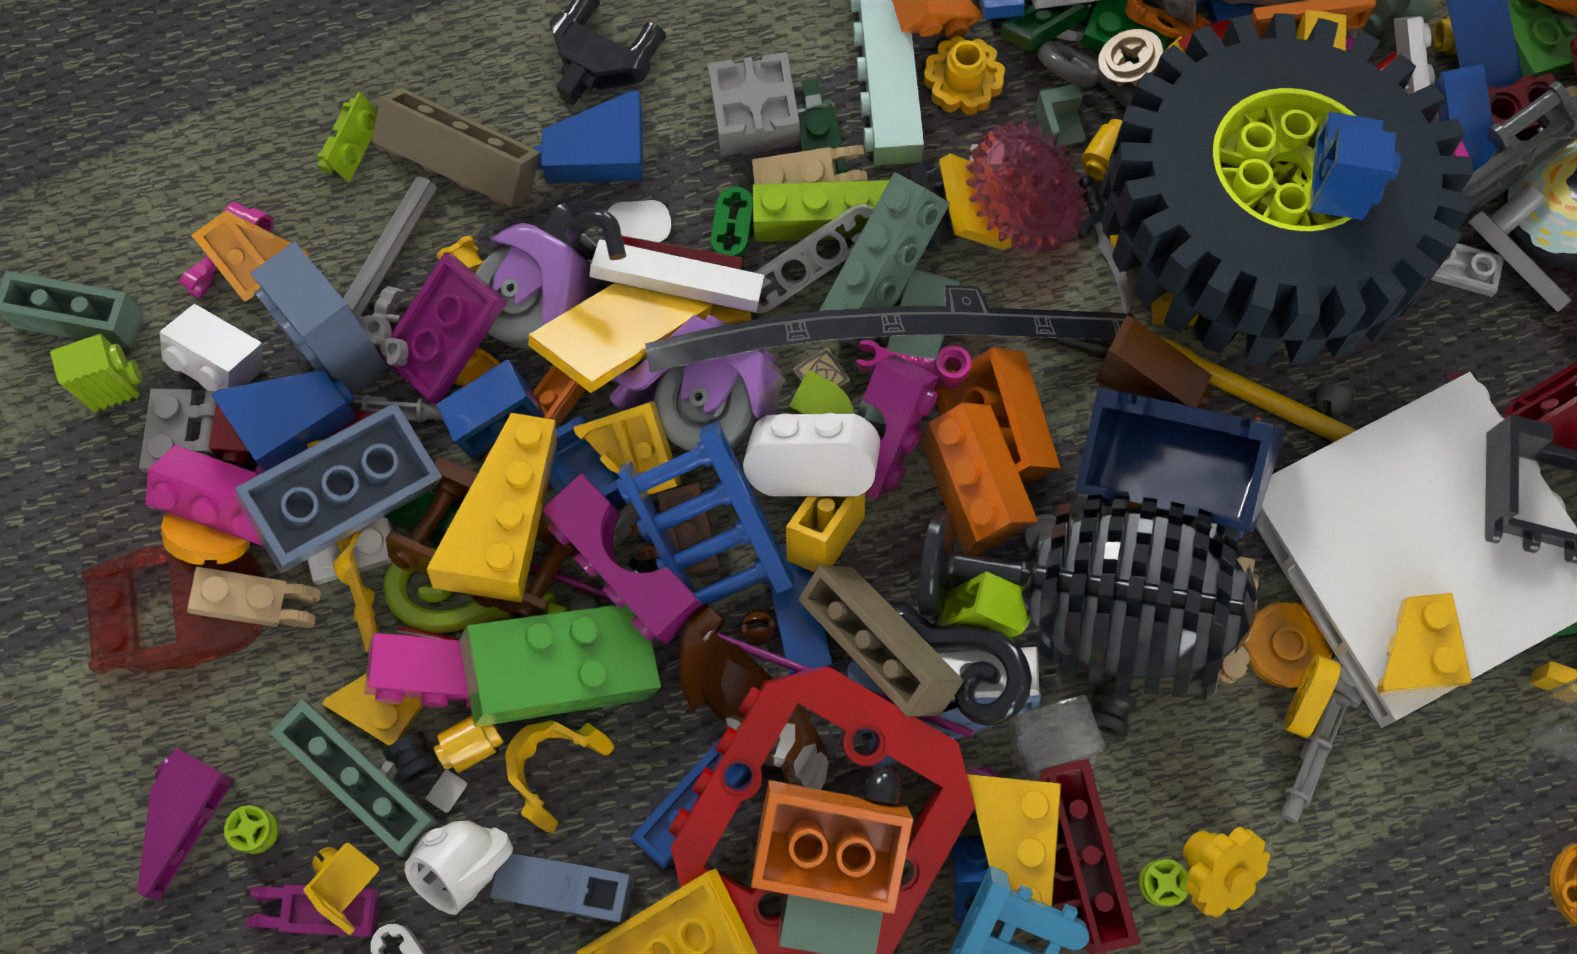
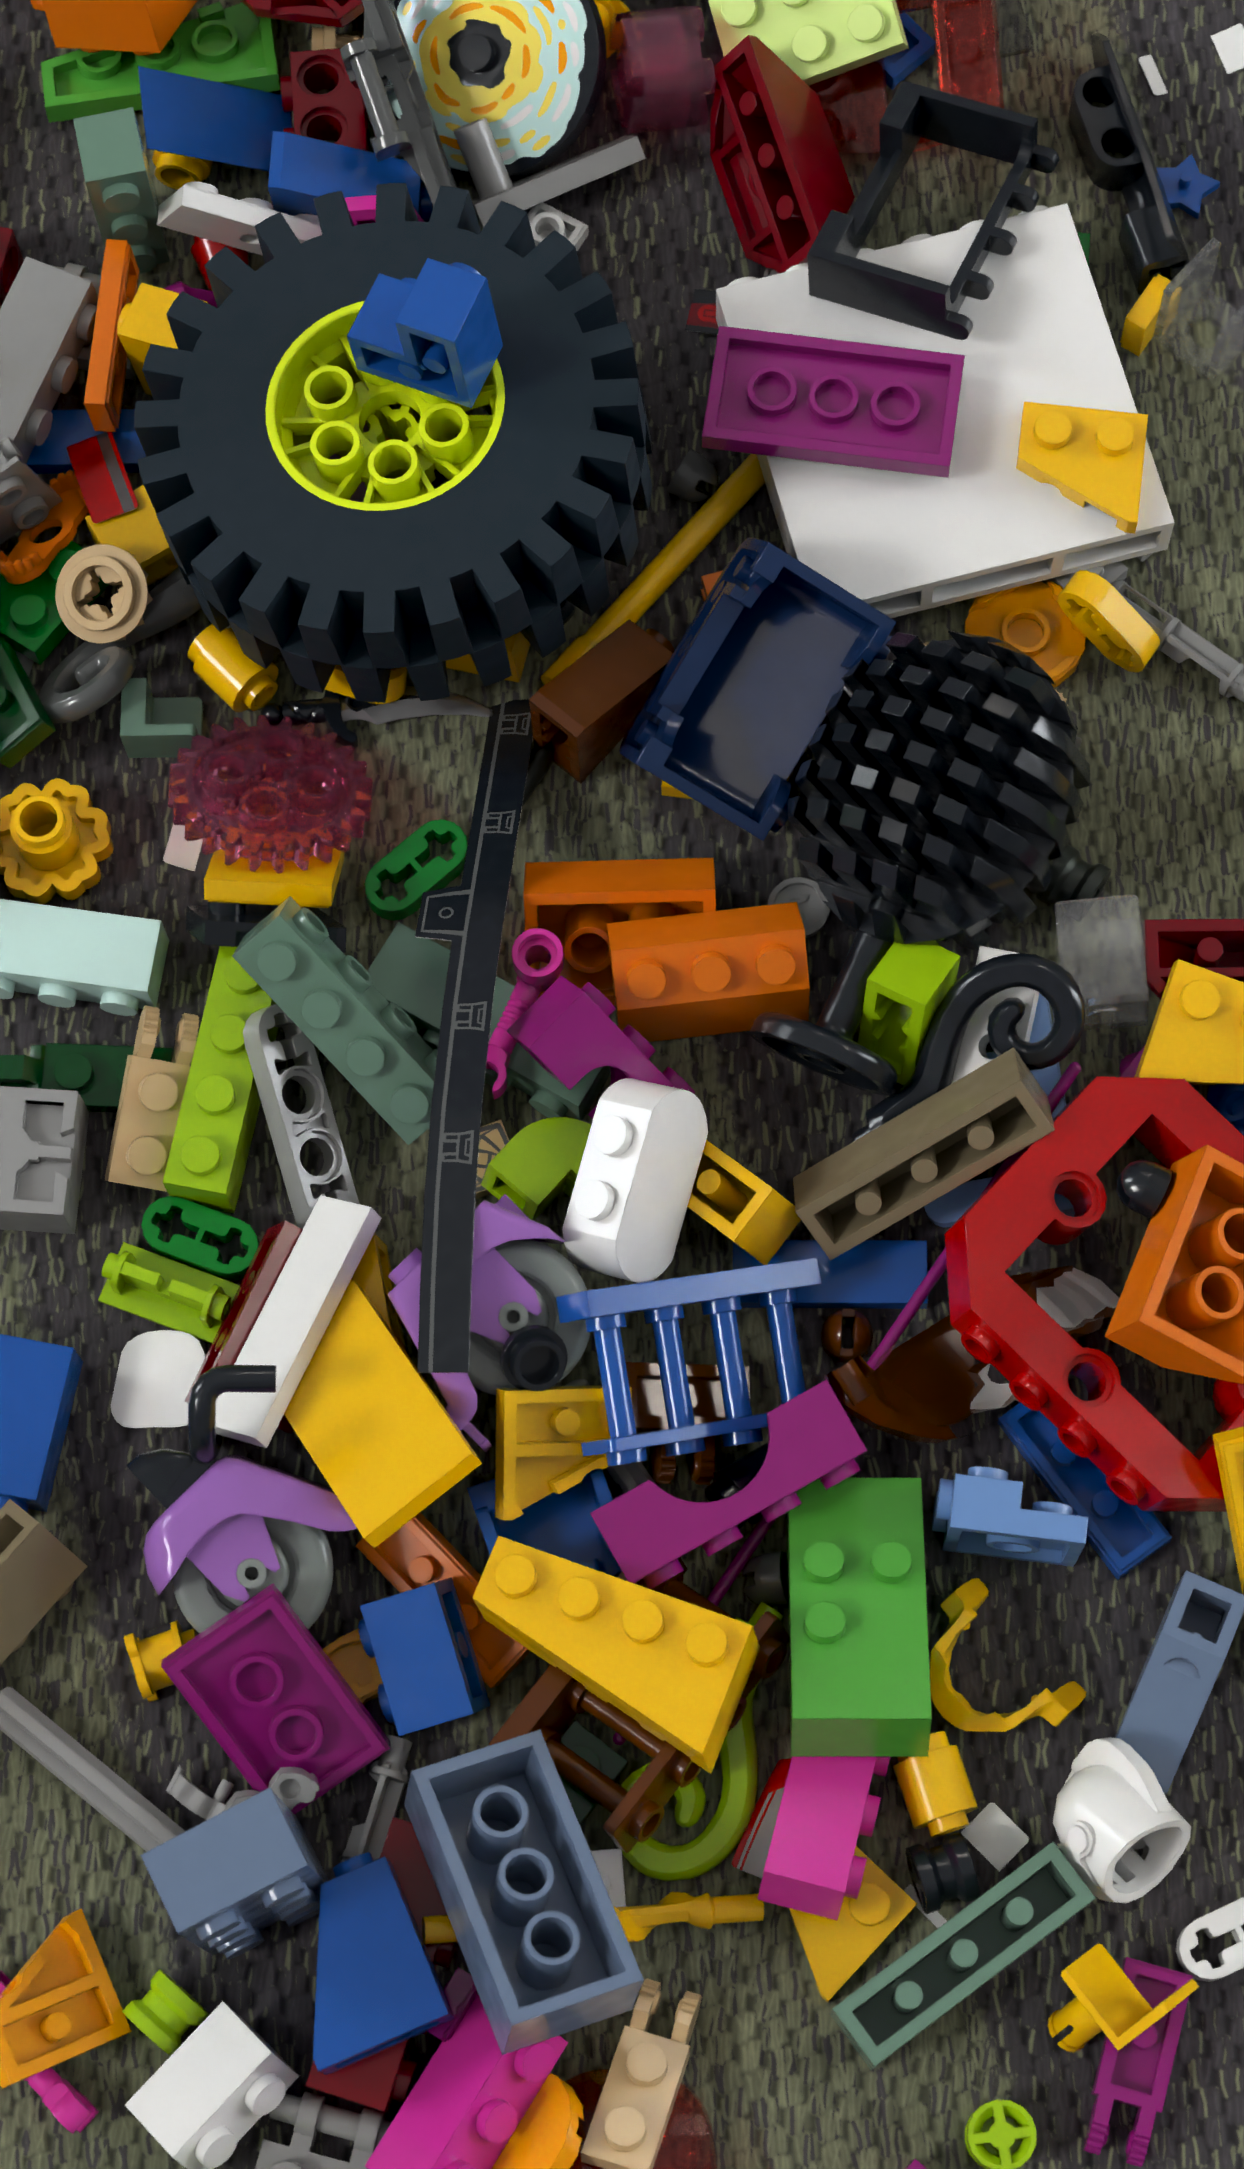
camera: 75 degrees left, 0 degrees up
(253, 316) = (165, 2012): none -> lime wheel
(645, 740) = (986, 1519): none -> medium blue plate
(674, 416) = (534, 1358): none -> black plate
(694, 211) = (166, 1292): none -> lime hinge
(1008, 282) = (408, 858): none -> green beam
(1408, 463) = (833, 401): none -> magenta plate

